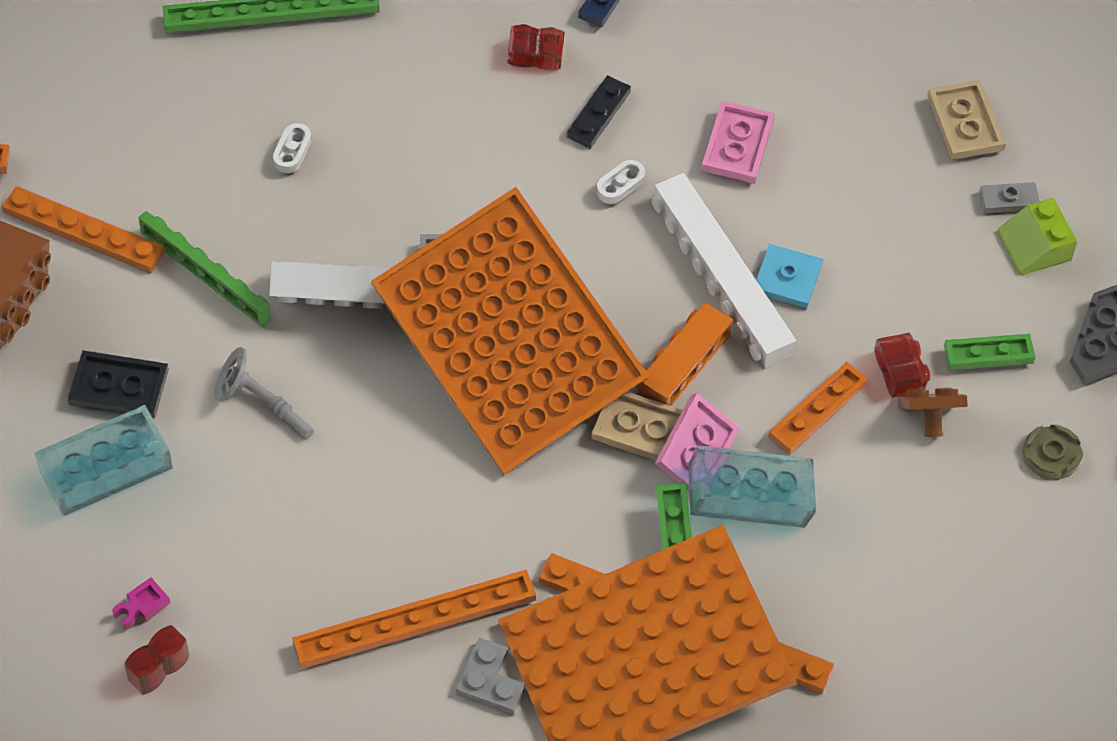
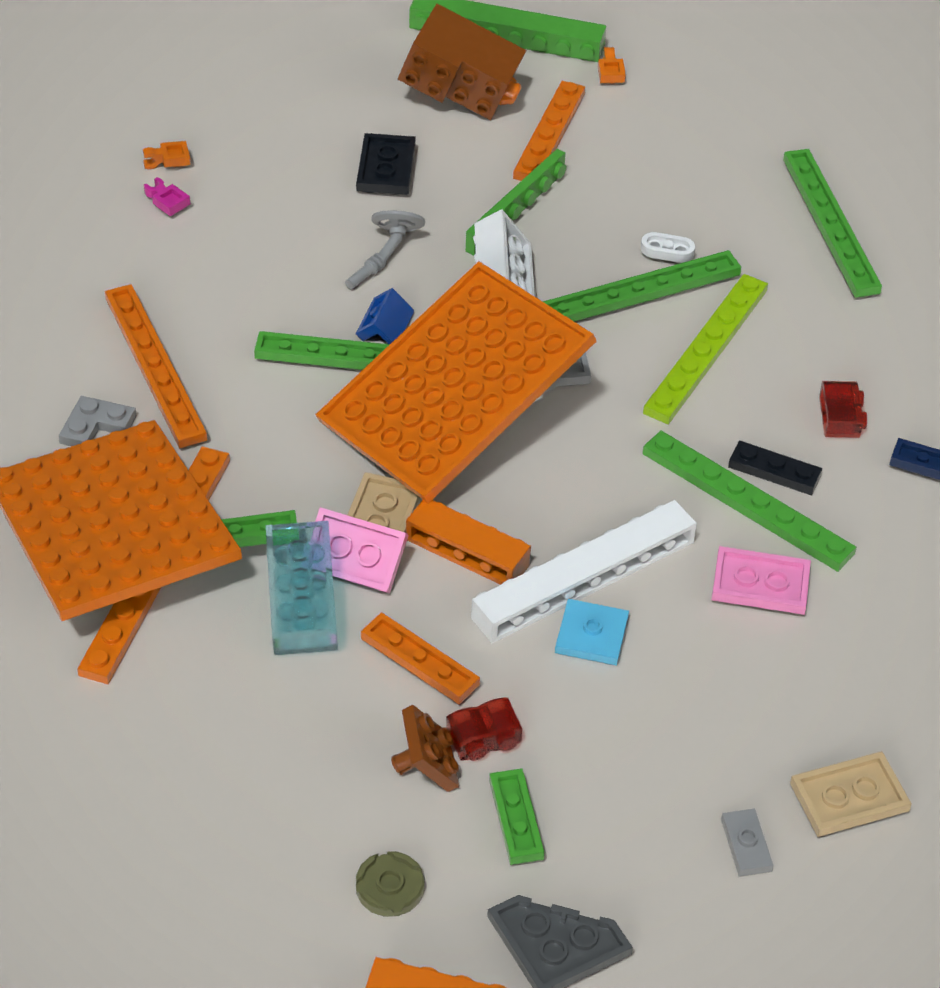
camera: 85 degrees right, 10 degrees down
(66, 597) = (170, 154): none -> orange plate
(103, 460) = (301, 156): clear light blue brick -> none
(152, 662) = (108, 206): clear red brick -> none
(351, 180) = (647, 286): none -> bright green plate
(367, 405) = (386, 316): none -> blue panel
(415, 451) = (316, 350): none -> bright green plate
(433, 137) = (705, 349): none -> lime plate
(618, 182) = (685, 486): white plate -> none
(636, 138) = (750, 501): none -> bright green plate
(1038, 237) = (690, 868): lime slope -> none

